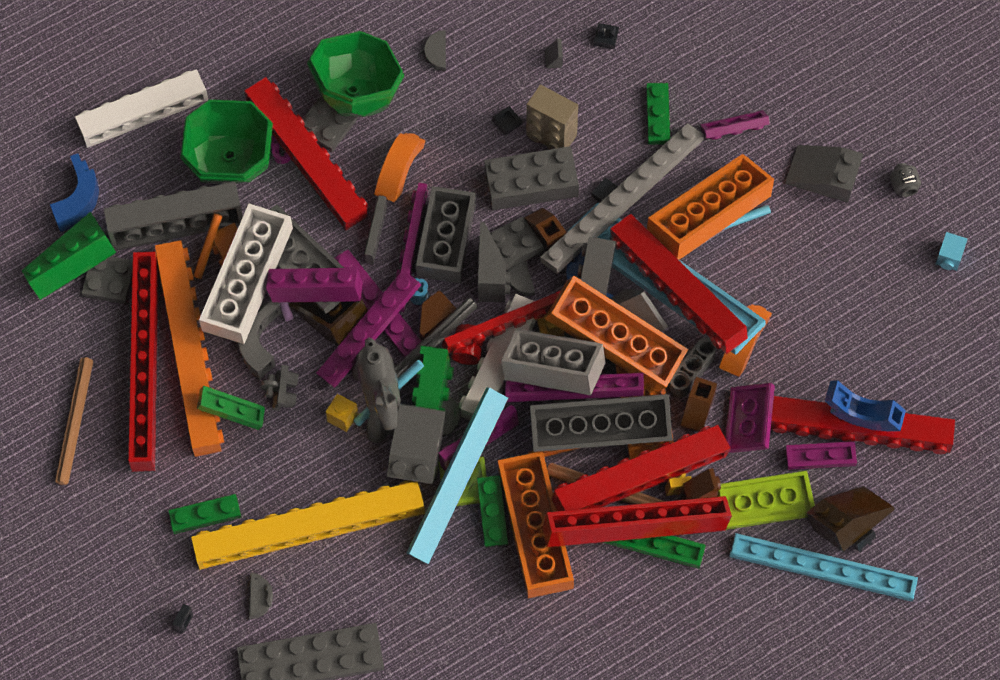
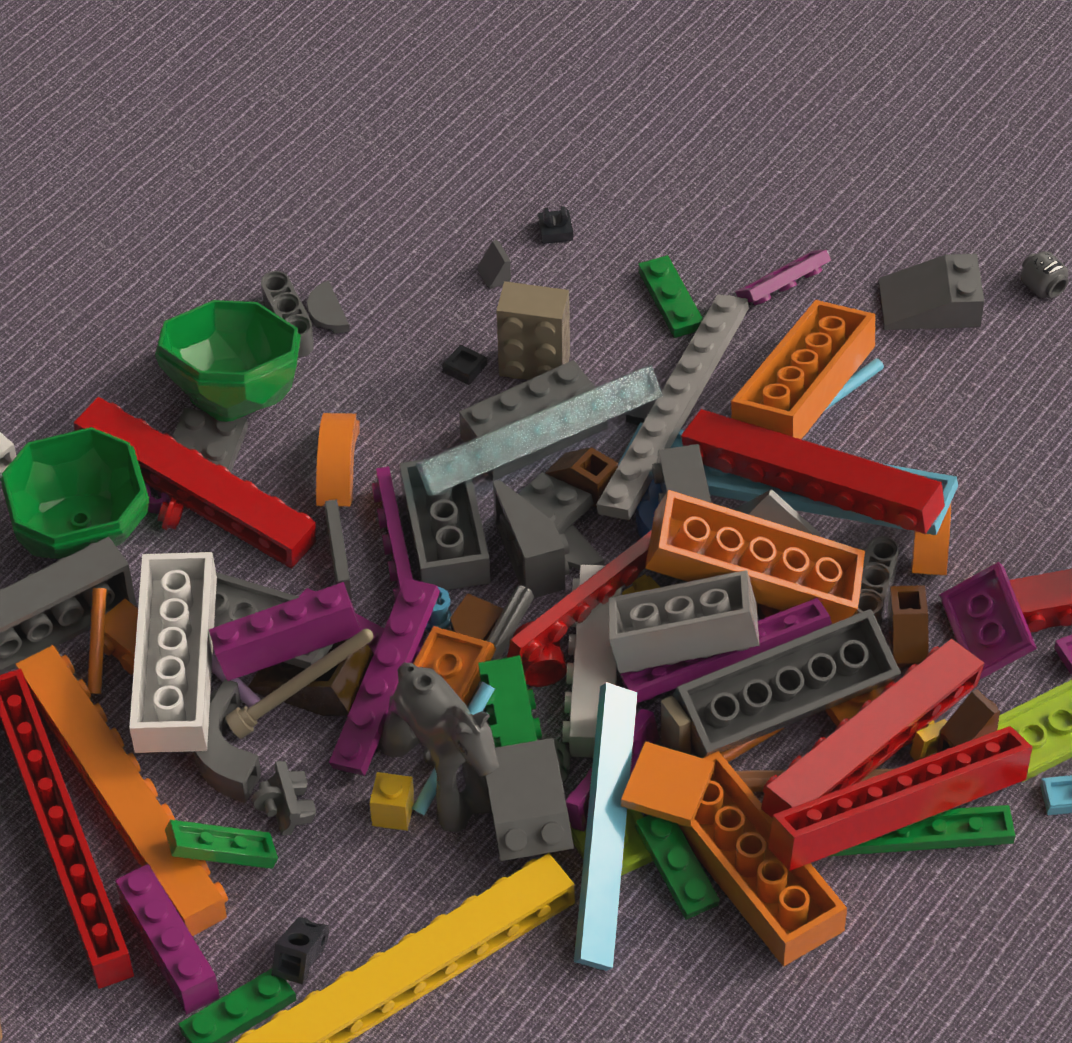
camera: 20 degrees left, 15 degrees down
(180, 455) = (167, 939): none -> magenta brick
(252, 489) = (299, 950): none -> black leg
(276, 327) = (243, 720): none -> dark tan piece
(285, 169) = (170, 514): none -> red plate
(407, 336) = (455, 659): none -> orange tile
(409, 38) = (283, 300): none -> dark grey beam
(501, 464) = (667, 784): none -> orange tile
(525, 426) = (675, 726): none -> dark tan tile
(526, 193) = (539, 430): none -> clear light blue plate

